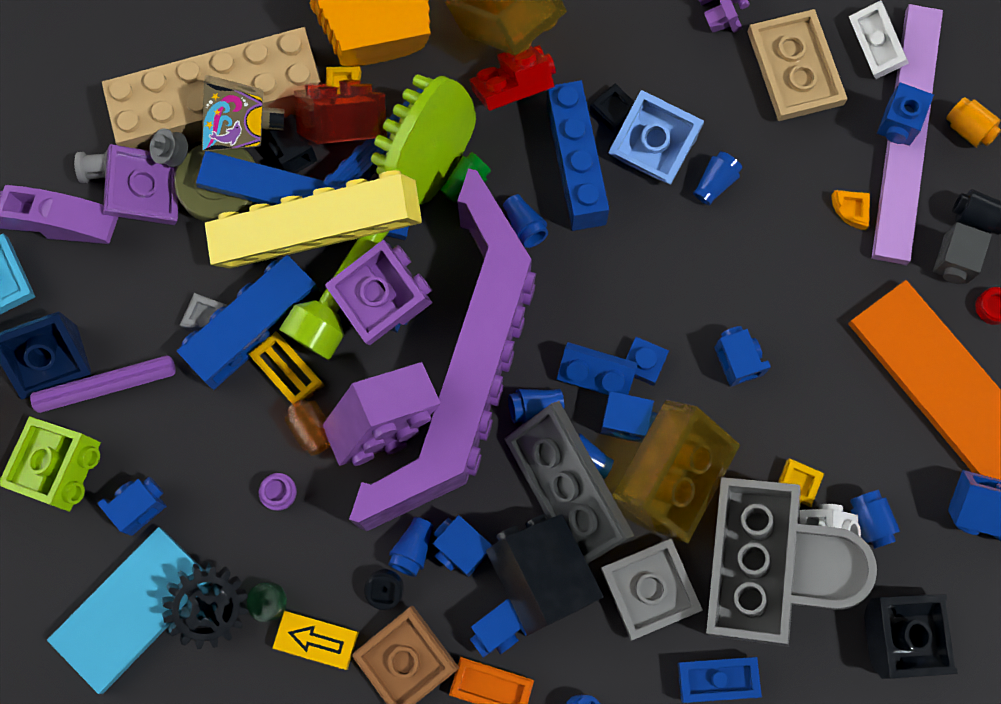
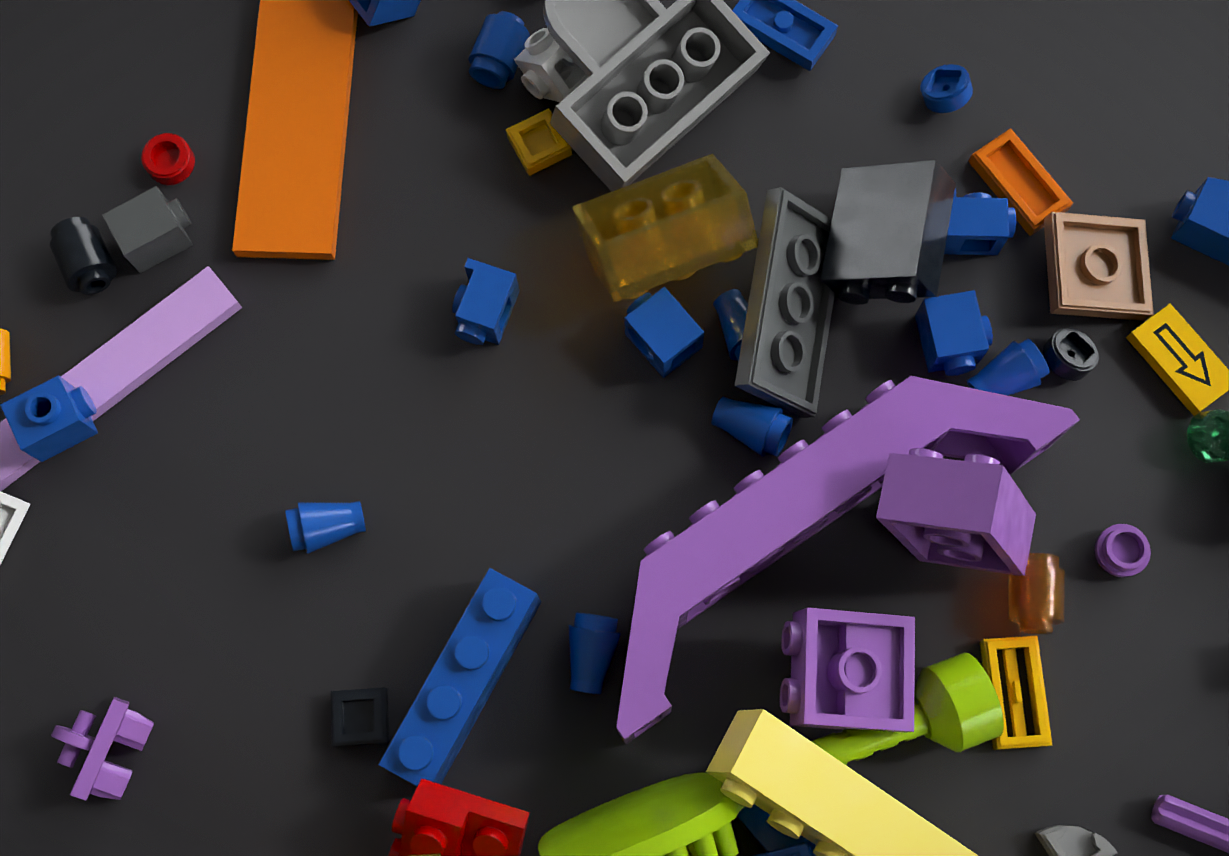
camera: 140 degrees left, 0 degrees up
(247, 321) = (1029, 783): blue brick -> none
(455, 182) = (618, 765): green cone -> none
(596, 370) = (654, 407): blue plate -> none
(649, 360) = (589, 383): blue plate -> none
(651, 589) = (783, 147): light grey plate -> none
(656, 137) = (348, 626): light blue slope -> none
(797, 65) = (100, 591): tan plate -> none
(852, 208) = (207, 374): light orange tile -> none

